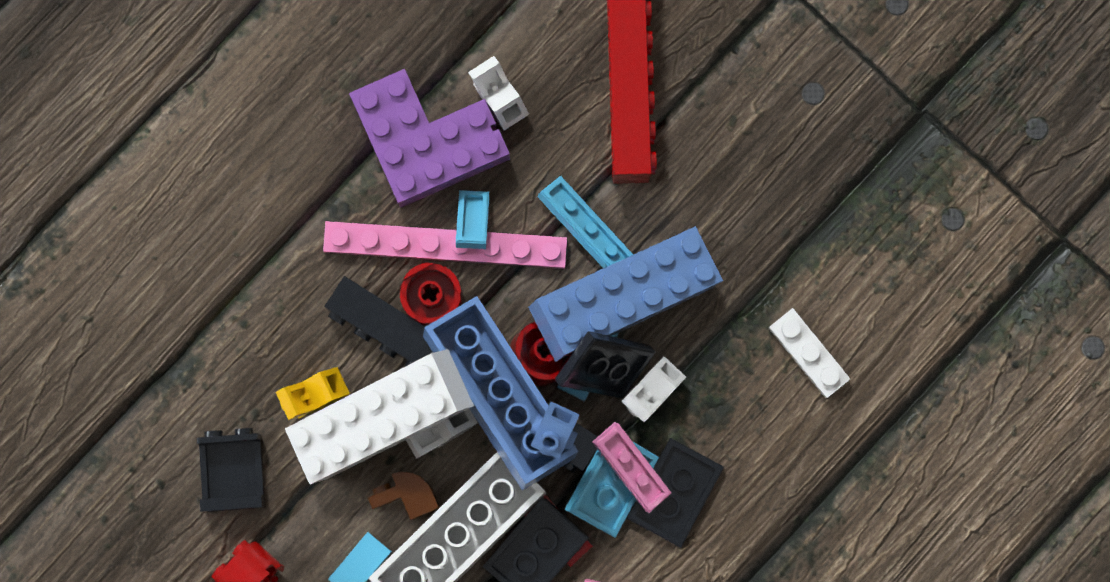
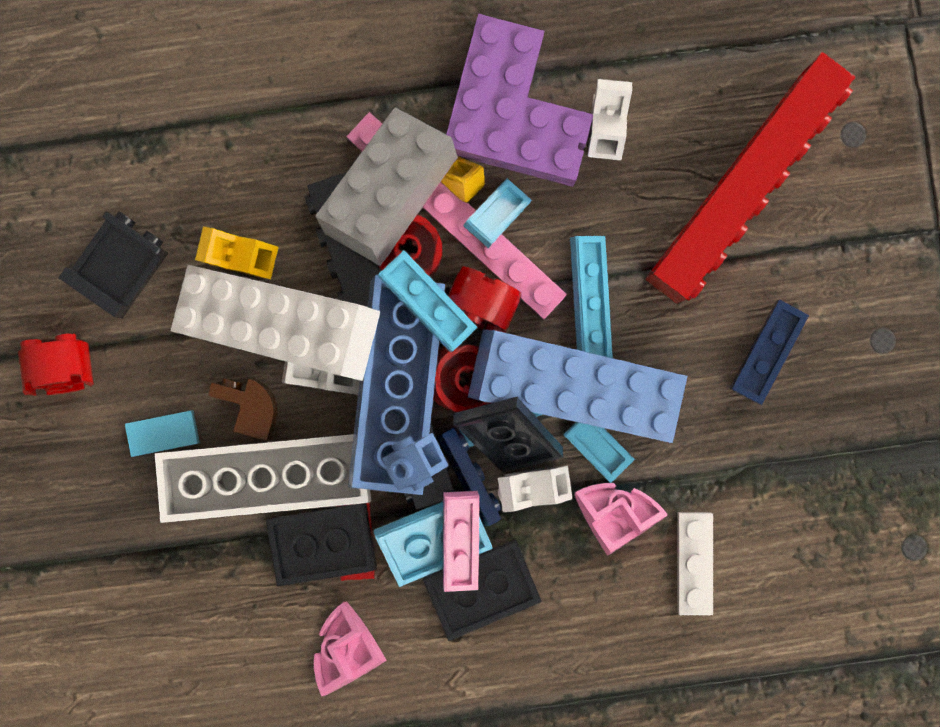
camera: 30 degrees right, 5 degrees up
(382, 261) = (387, 186): none -> light grey brick
(428, 215) = (464, 179): none -> yellow slope
(474, 317) = (427, 301): none -> medium azure tile
(511, 288) = (484, 299): none -> red brick
(602, 417) = (469, 474): none -> dark blue plate
(677, 327) = (599, 449): none -> medium azure tile
(727, 363) = (617, 514): none -> bright pink brick
(740, 164) = (769, 352): none -> dark blue plate

